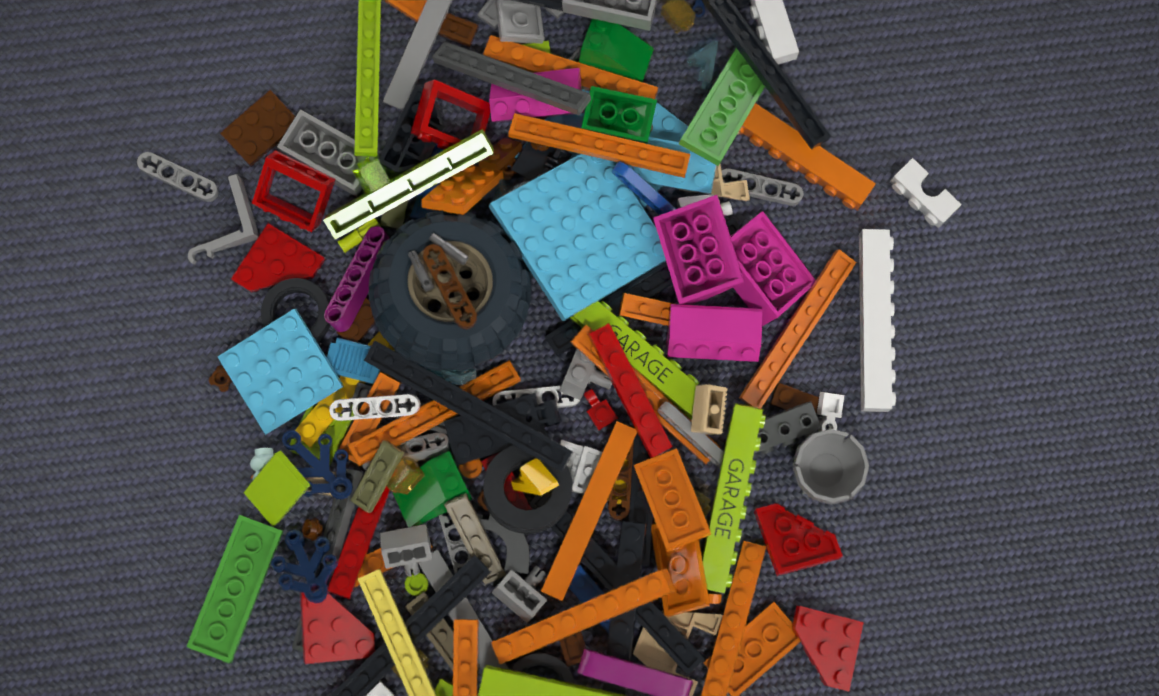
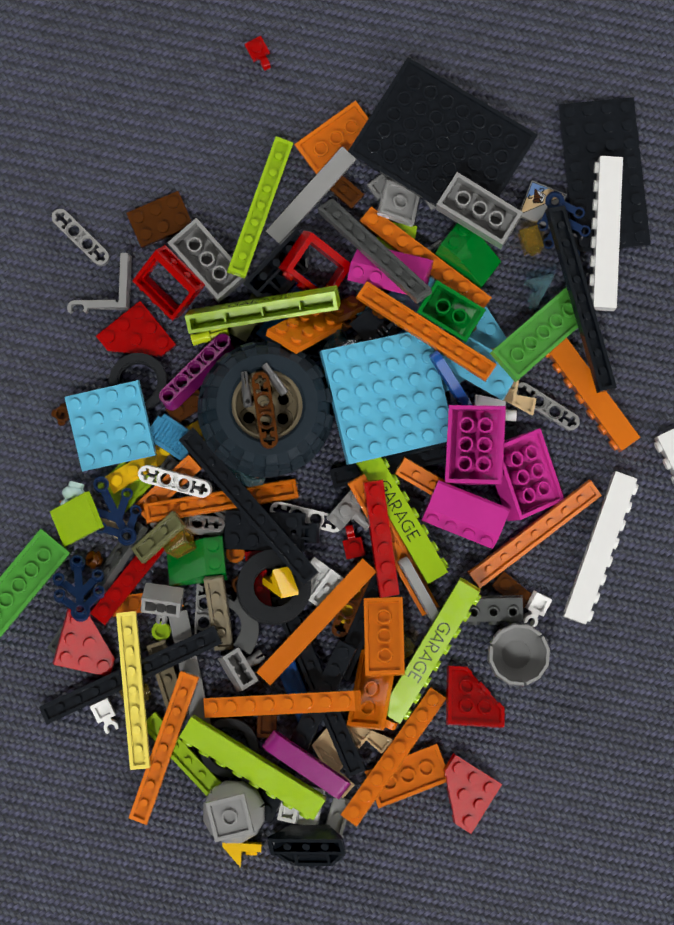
camera: 20 degrees right, 5 degrees up
(371, 175) = (234, 292): clear neon green brick -> none
(708, 409) = (437, 576): tan brick -> none

